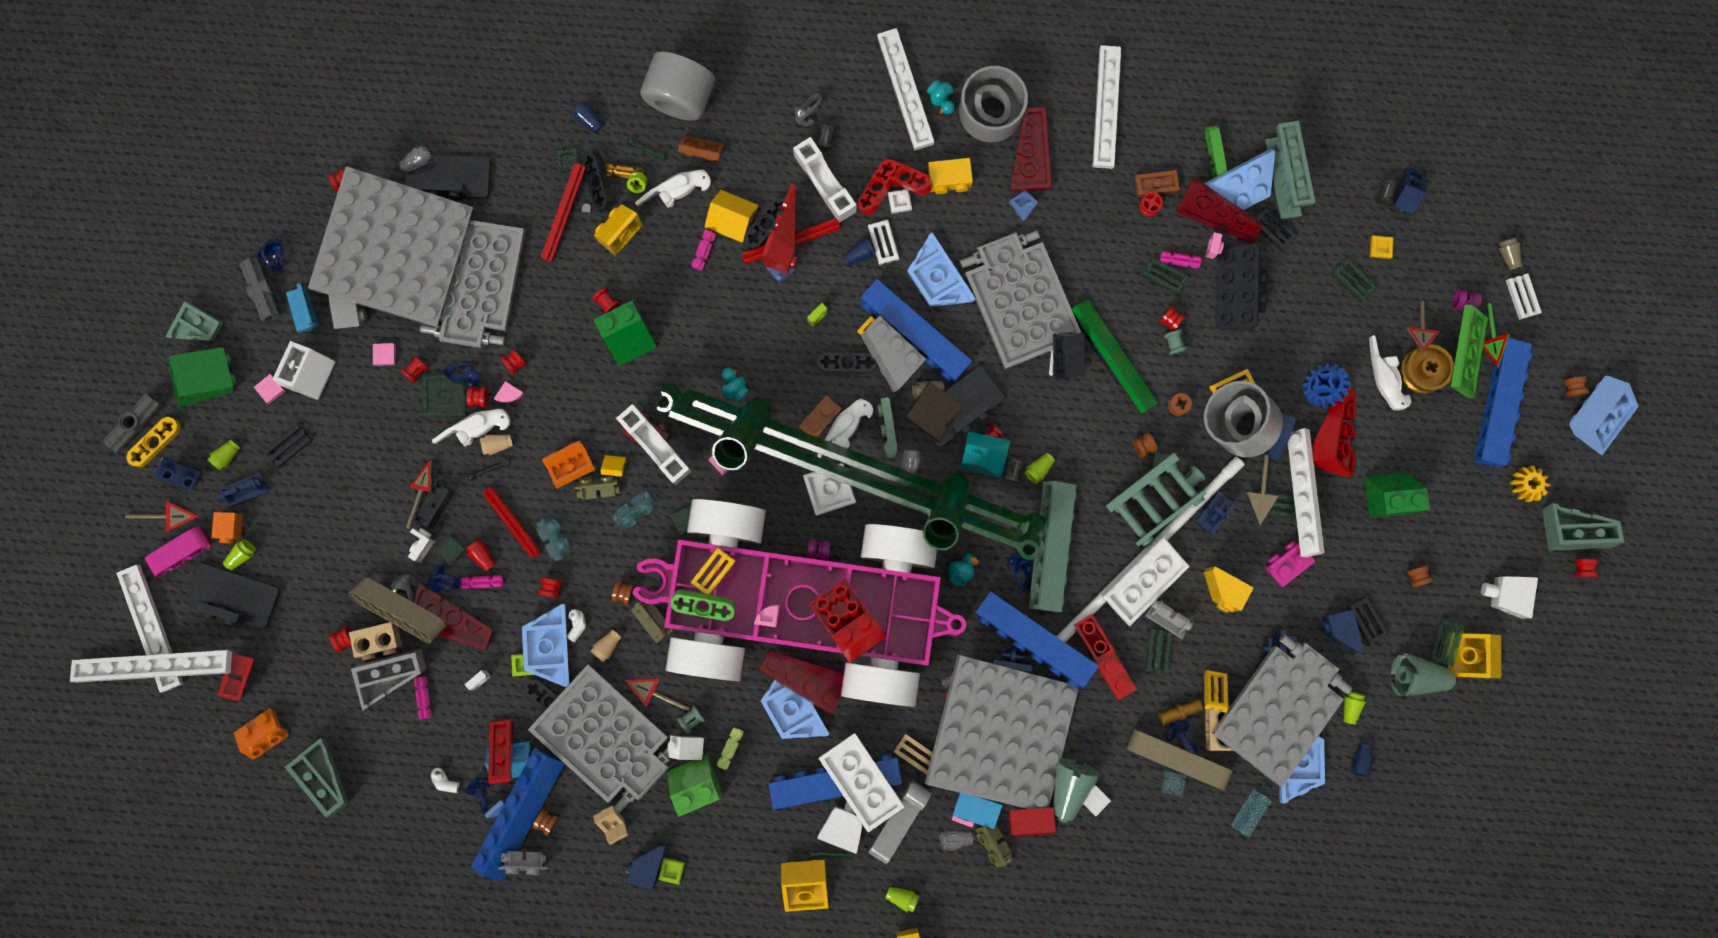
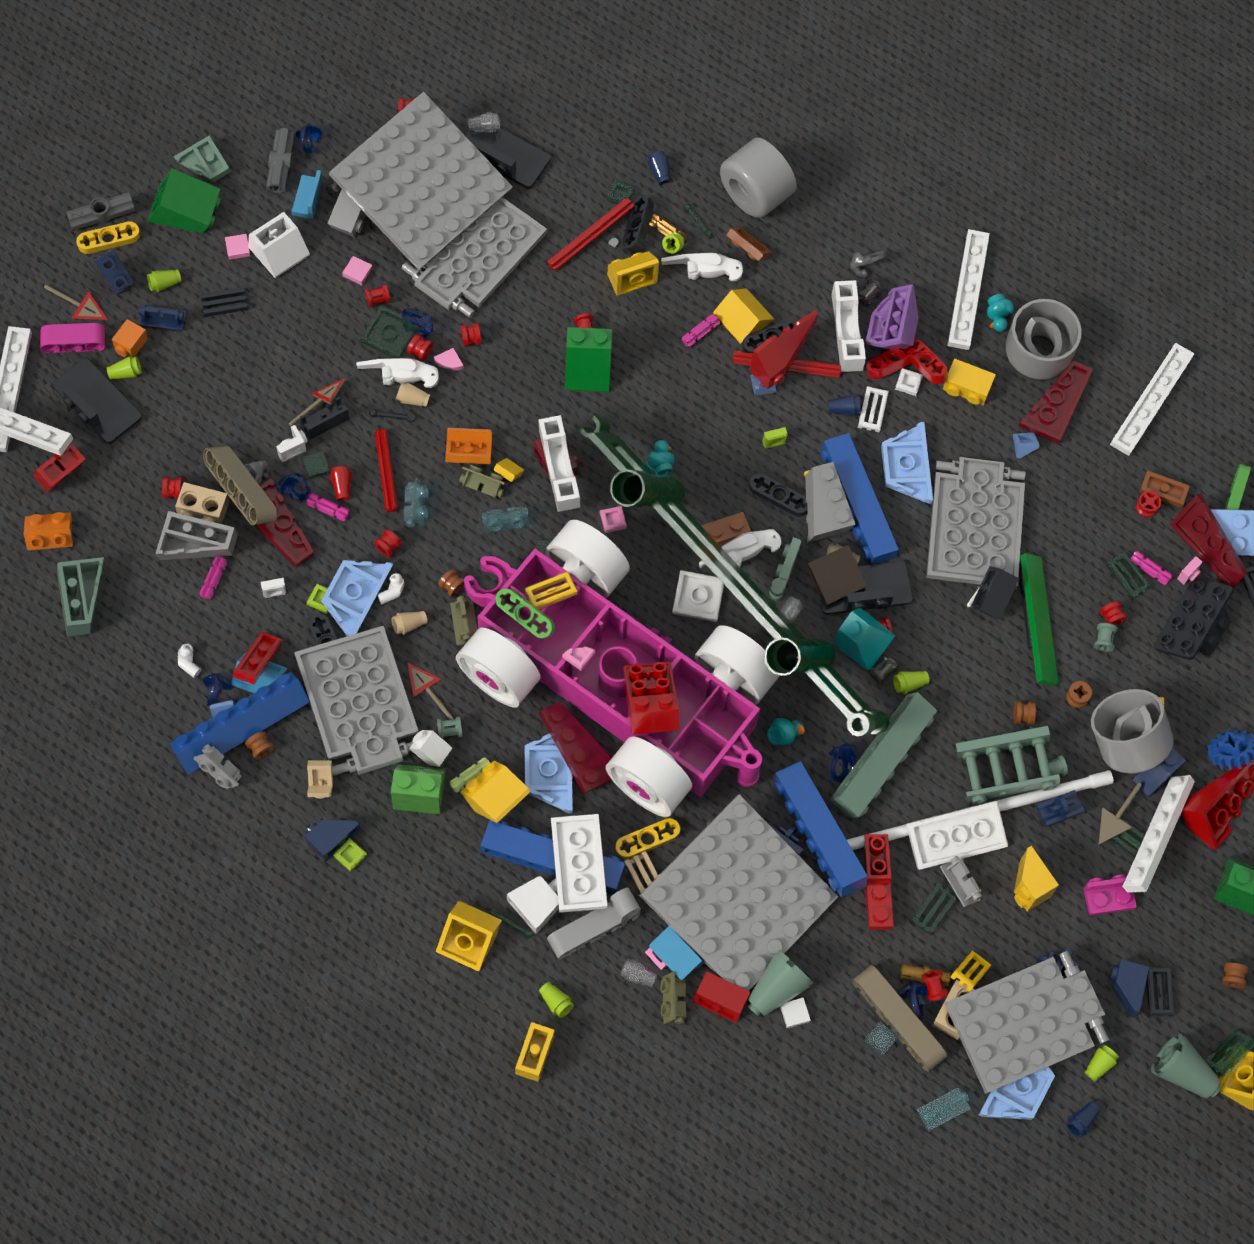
camera: 25 degrees right, 15 degrees down
(760, 757) = (494, 791): none -> yellow slope
(860, 154) = (894, 320): none -> medium lavender wedge
(896, 738) = (666, 838): none -> yellow beam
(1198, 723) = (934, 985): none -> red bush

